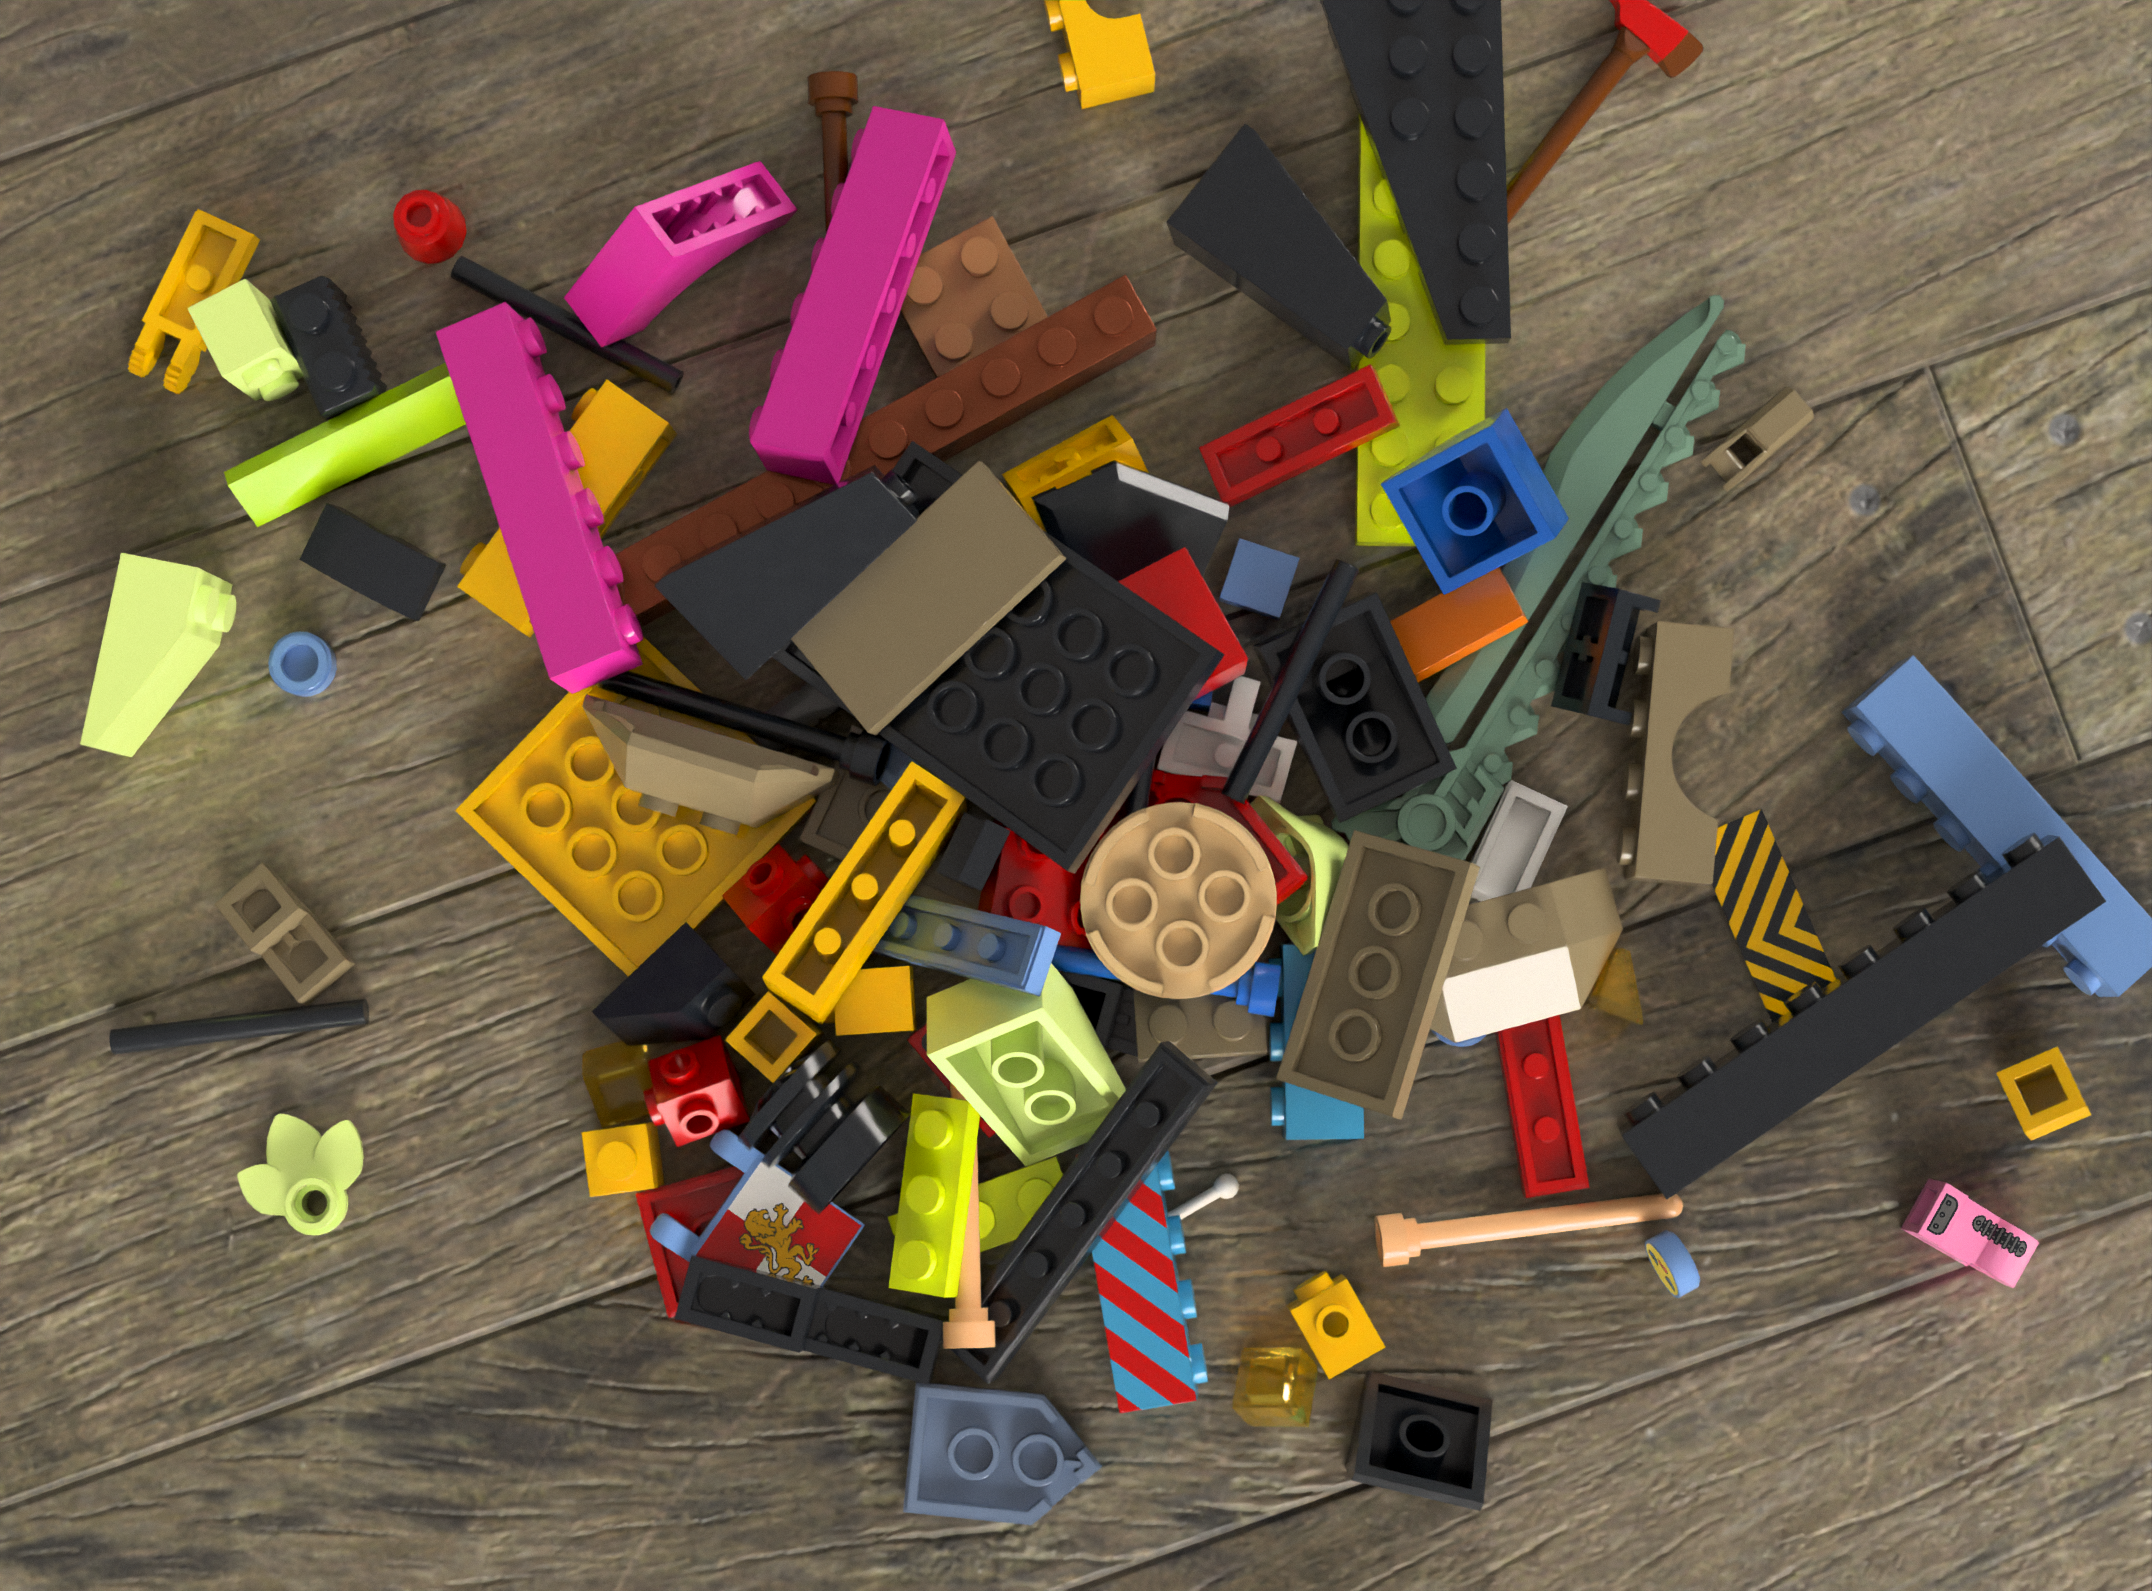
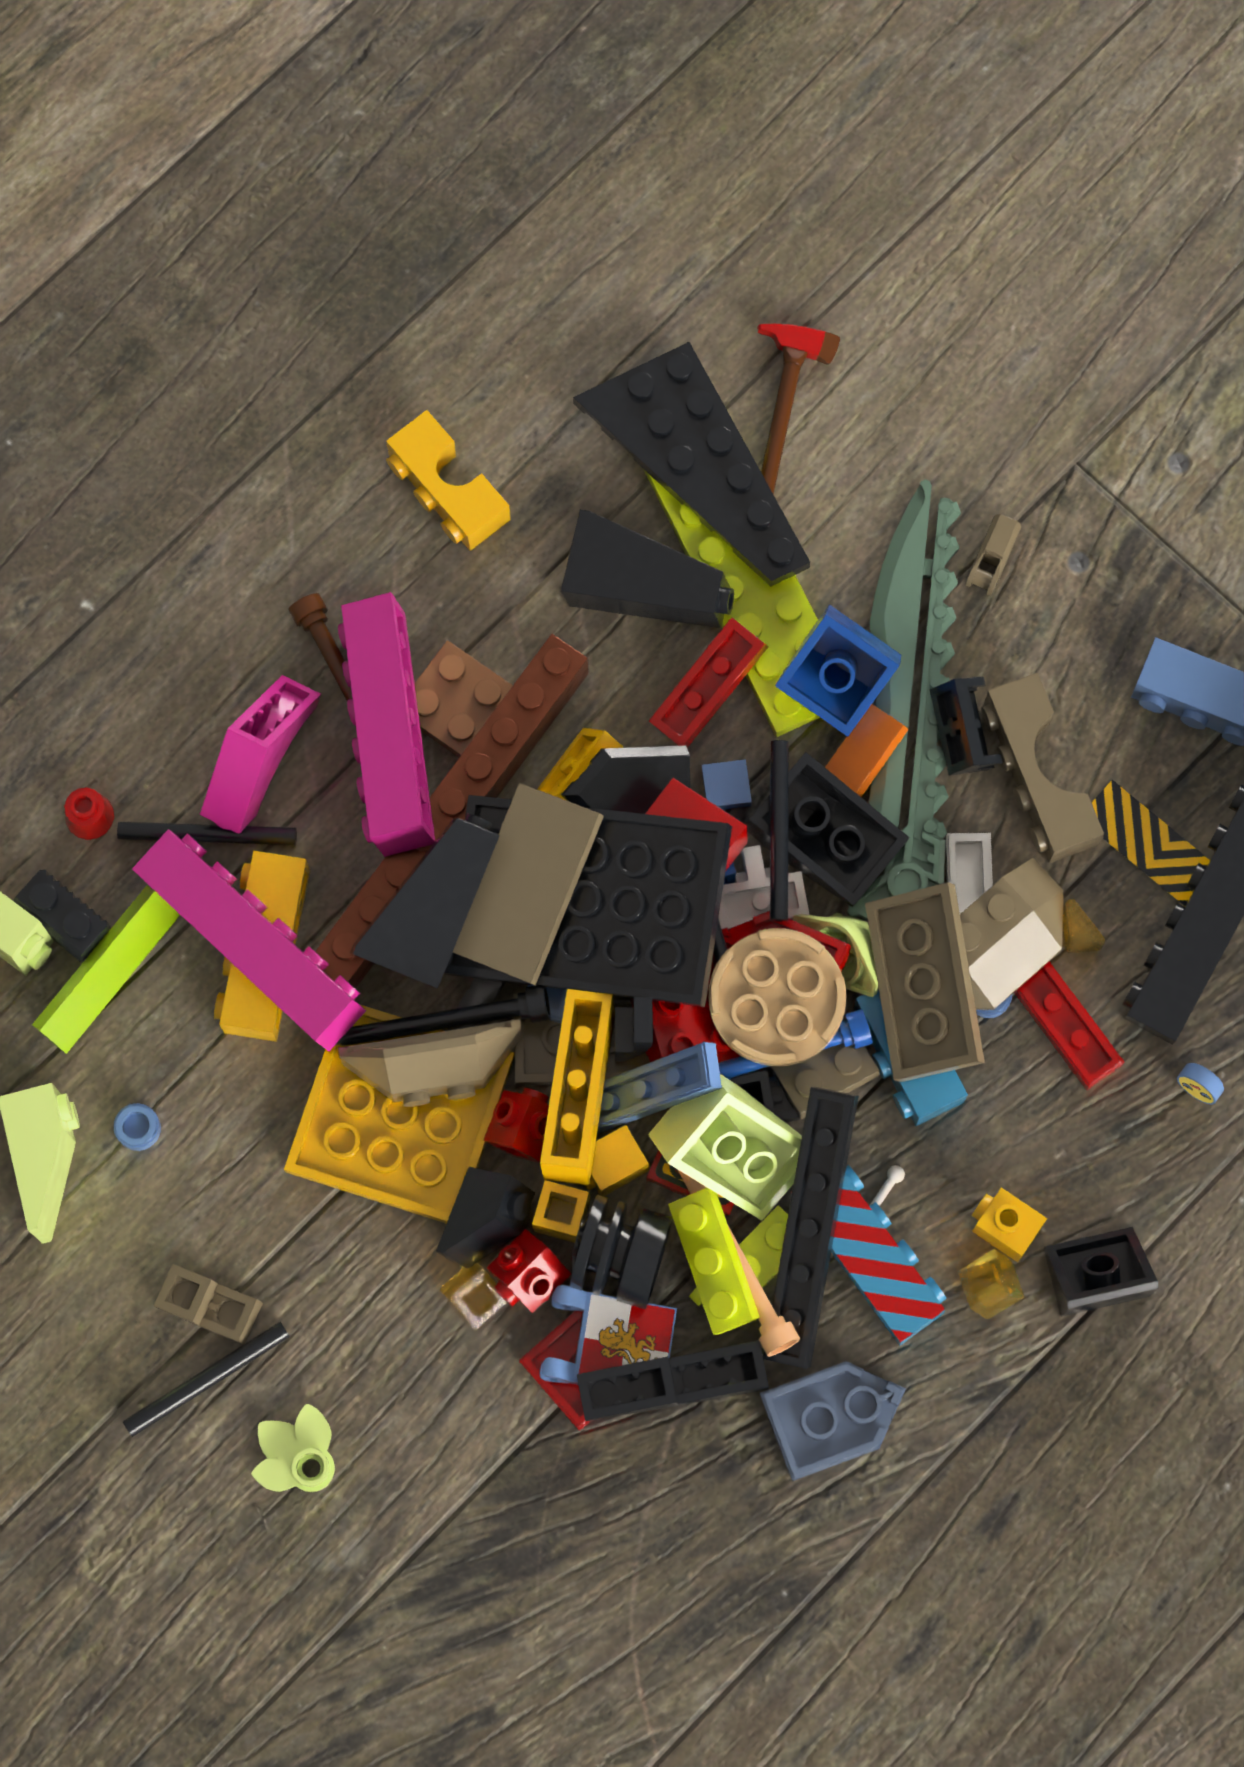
camera: 30 degrees left, 10 degrees down
(372, 562) = (154, 1038): black slope -> none
(622, 1159) = (500, 1338): yellow brick -> none
(1404, 1238) = (1024, 1150): light nougat piece -> none

